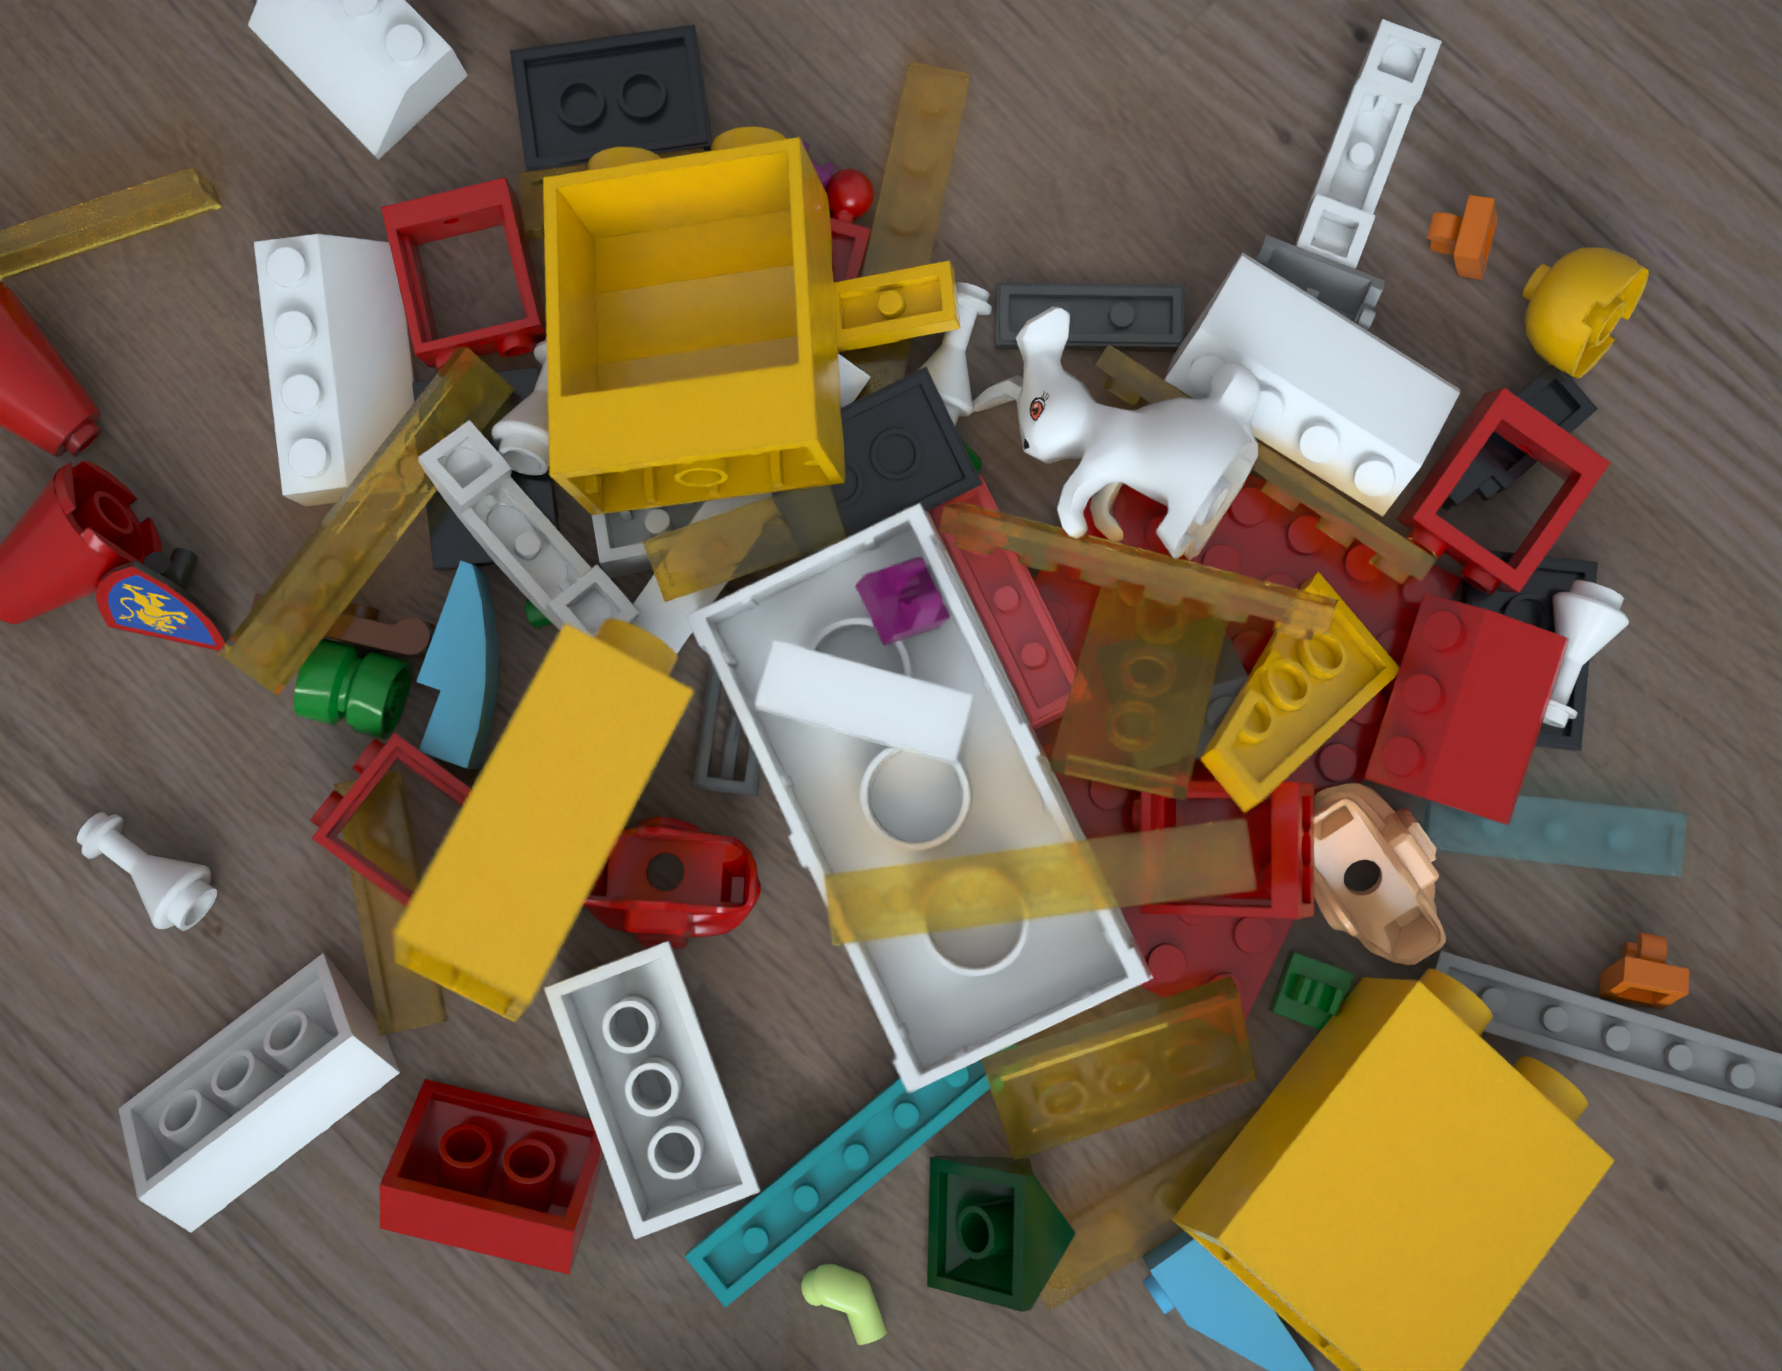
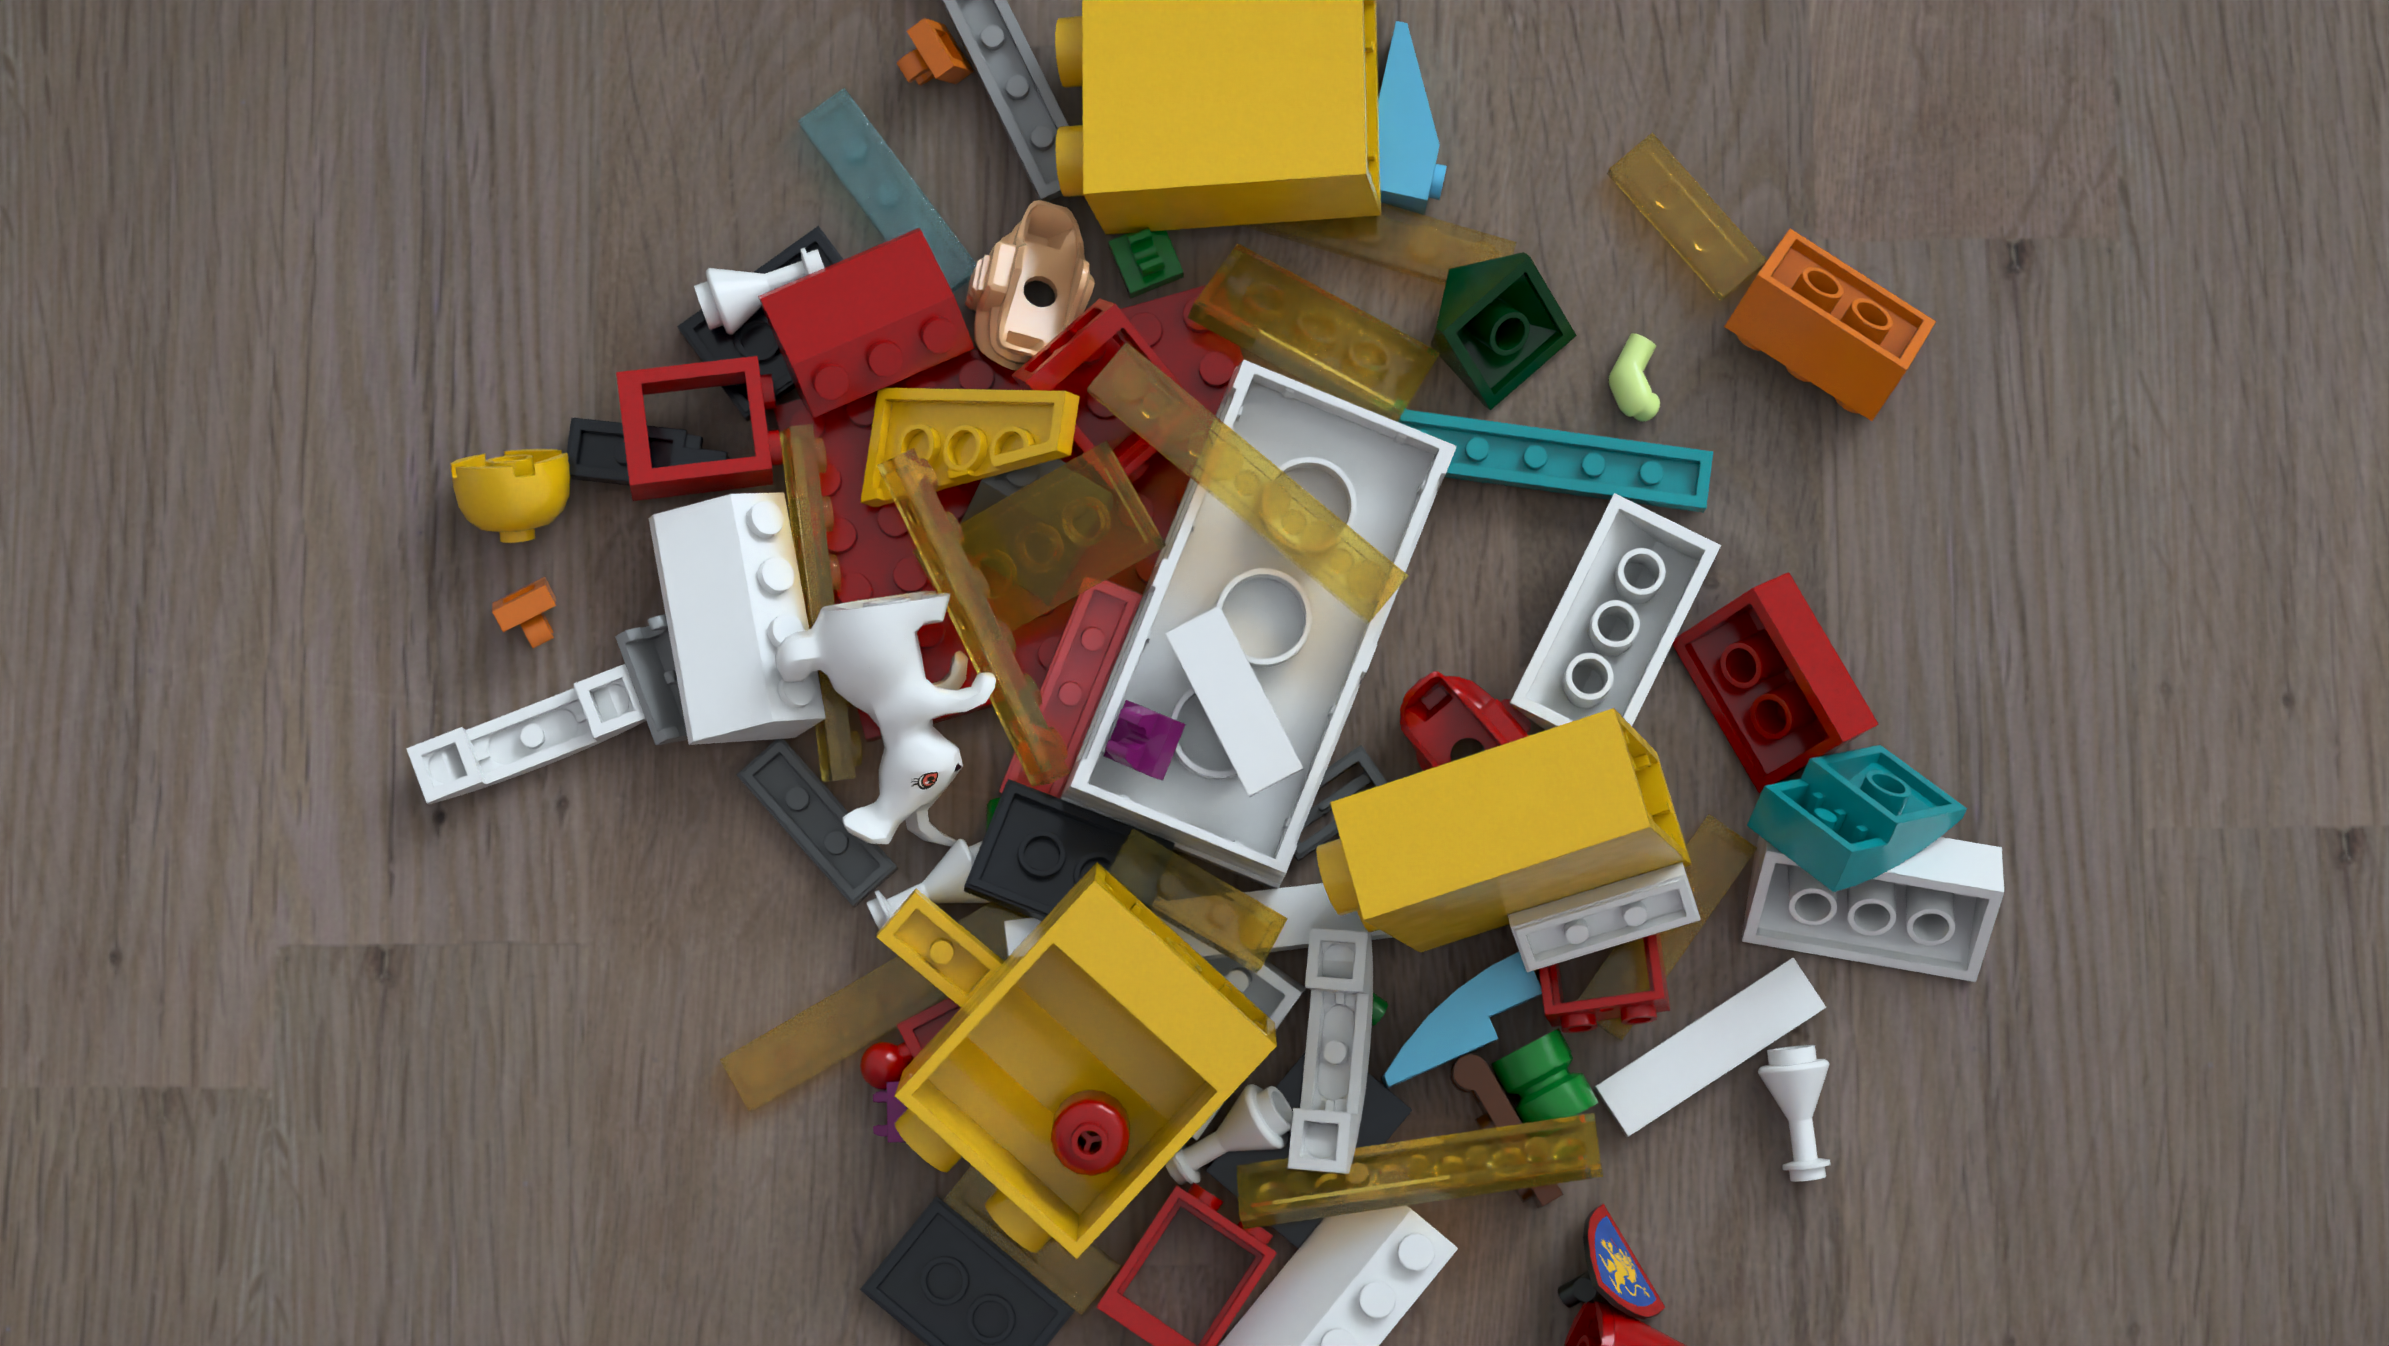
camera: 135 degrees left, 5 degrees down
(264, 849) = (1709, 1047): none -> white tile
(316, 1134) = (1853, 816): none -> teal slope
(412, 848) = (1604, 917): none -> white tile
(635, 284) = (1084, 1113): none -> red head

